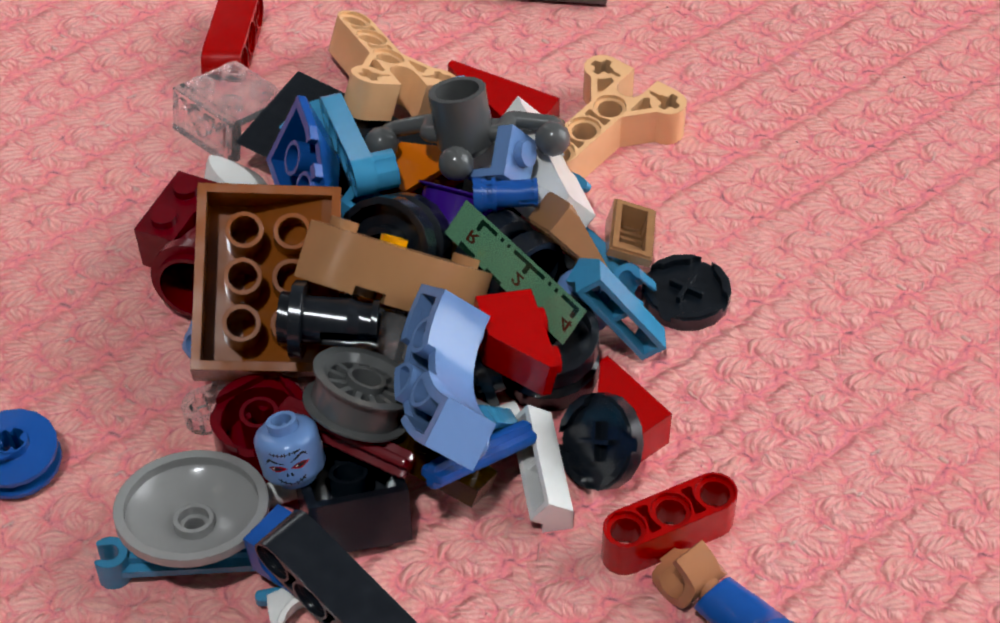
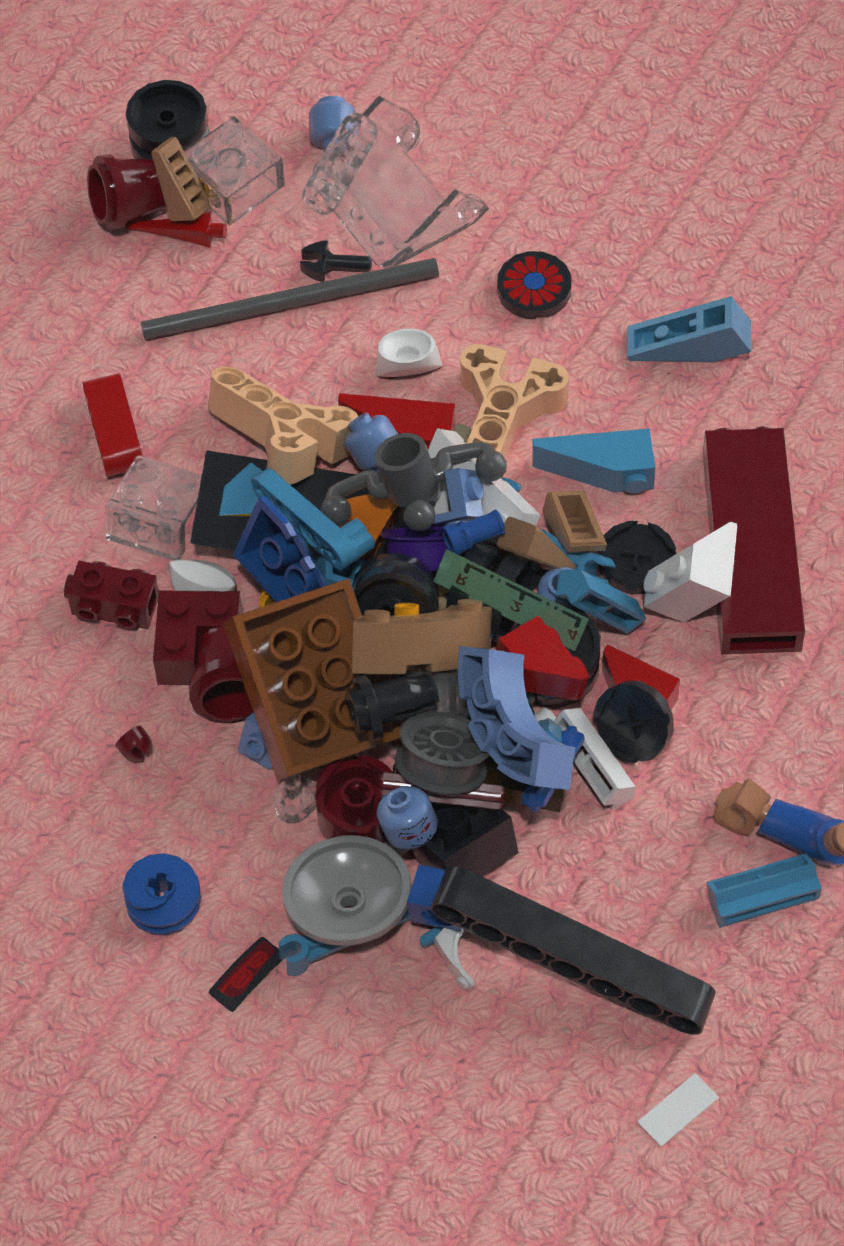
camera: 20 degrees left, 10 degrees up
(54, 568) = (245, 974): none -> sticker
(82, 305) = (133, 743): none -> dark red hinge
(137, 166) = (112, 594): none -> dark red brick
(539, 53) = (407, 353): none -> white piece
(684, 506) = (718, 754): red beam -> none
(690, 191) = (605, 460): none -> dark azure slope
(694, 33) = (534, 284): none -> tile
(730, 314) = (693, 577): none -> white slope
(815, 314) = (752, 488): none -> dark red brick
(838, 110) = (693, 334): none -> dark azure slope

